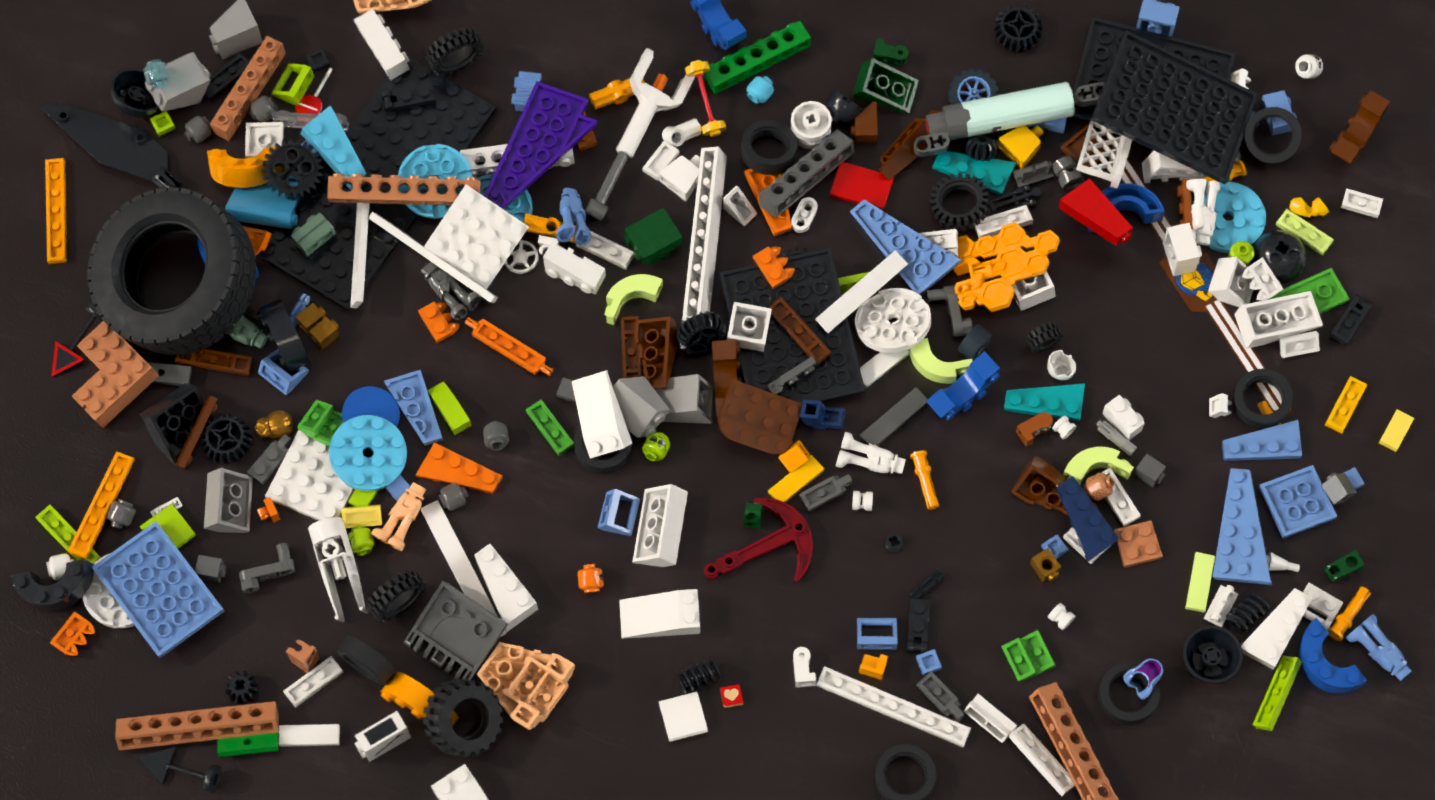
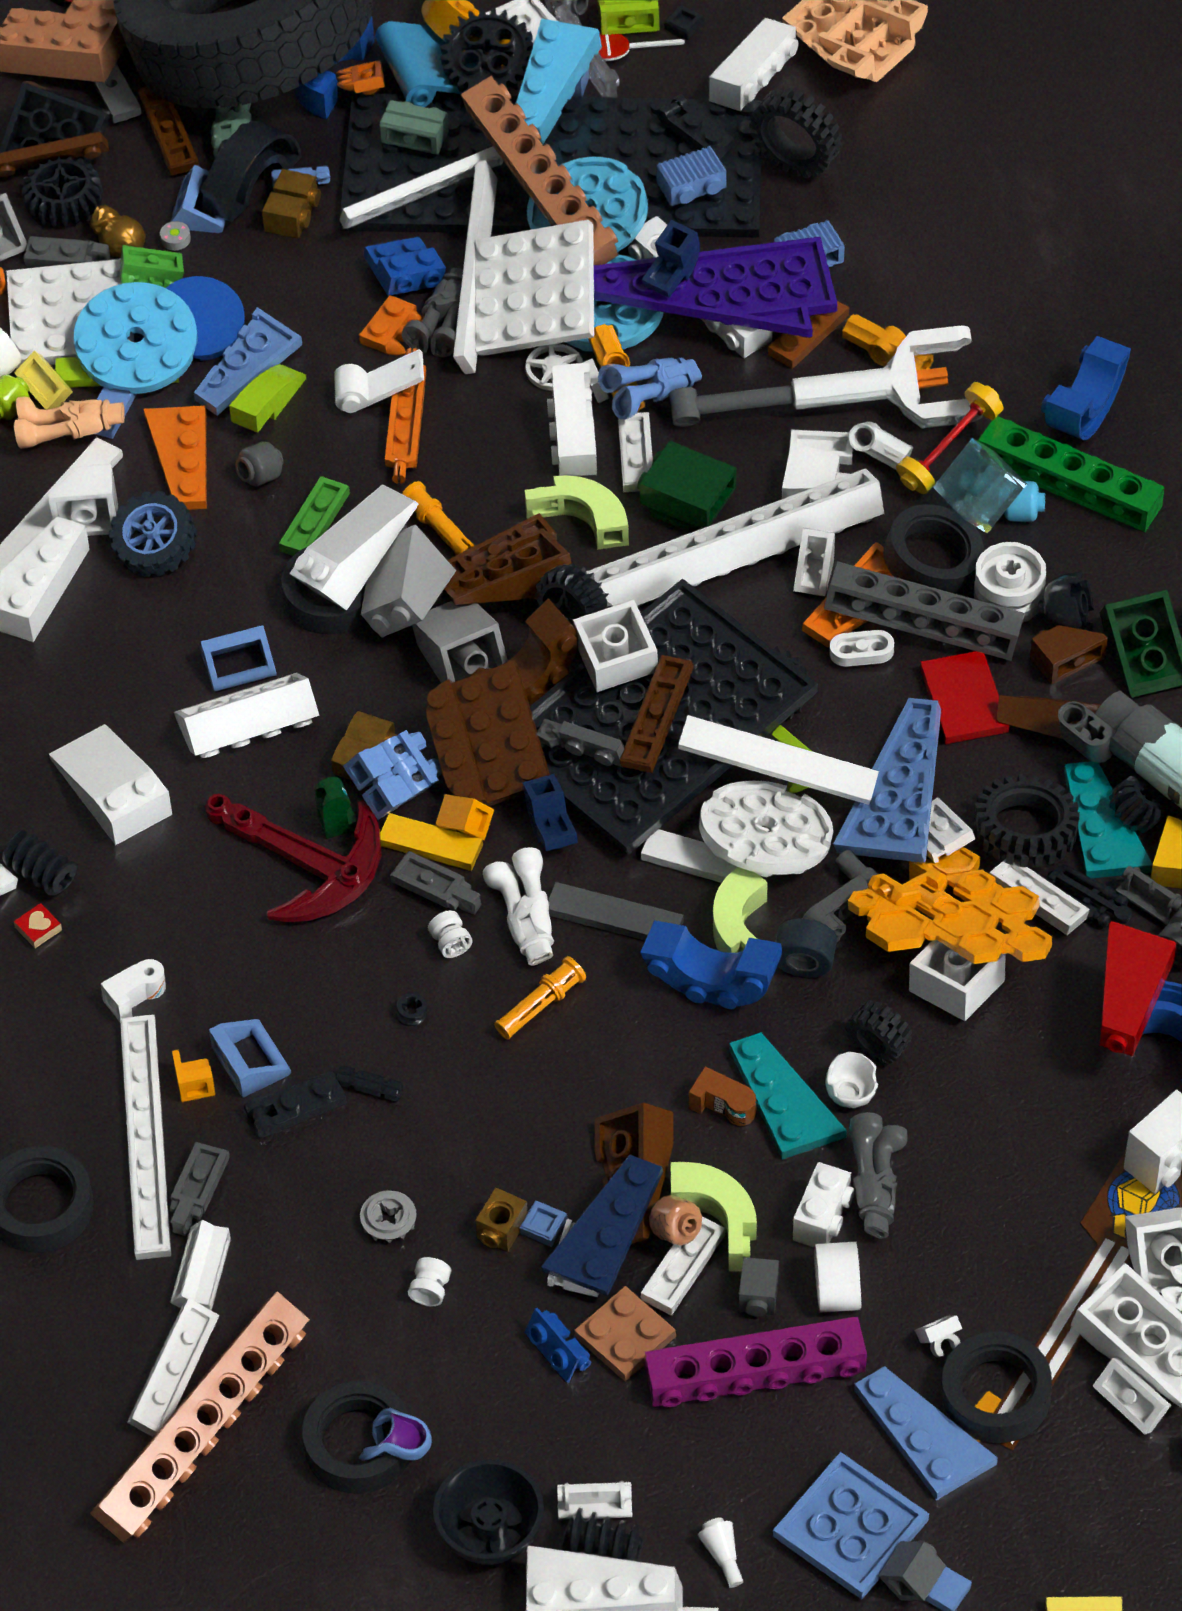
camera: 60 degrees right, 15 degrees down
(296, 396) = (175, 235): none -> light grey tile
(403, 291) = (405, 265): none -> blue plate
(445, 118) = (691, 176): none -> medium blue brick
(453, 496) = (137, 463): dark grey head -> none
(473, 532) = (87, 498): none -> white slope
(475, 358) = (360, 389): none -> white door
(507, 494) = (144, 510): none -> black wheel
(514, 160) = (677, 256): none -> dark blue brick
(583, 369) = (430, 512): none -> light orange pin
(590, 578) = (112, 670): orange head -> none
(656, 446) = (366, 648): lime head -> none
(720, 481) = (362, 733): none -> pearl gold brick
(748, 102) = (979, 485): none -> clear light blue brick
(752, 474) = (395, 771): none -> medium blue hips
(773, 267) = (735, 630): orange plate -> none
(928, 662) = (243, 1142): medium blue plate -> none
(1016, 610) = (392, 1203): none -> light grey gear
(1028, 656) = (338, 1272): bright green slope -> none
(1064, 427) = (751, 1135): white wheel -> none
(1117, 438) = (786, 1207): light grey piece -> none
(1124, 386) = (875, 1181): none -> dark grey piece
(1136, 577) = (548, 1336): none -> blue hinge
(1166, 432) = (837, 1277): none -> white piece
(1200, 582) = (617, 1451): yellowish green tile -> none
(1201, 449) = (769, 1348): none -> magenta brick
(1241, 541) = (730, 1469): medium blue wing -> none
(1346, 404) = (1077, 1519): yellow tile -> none

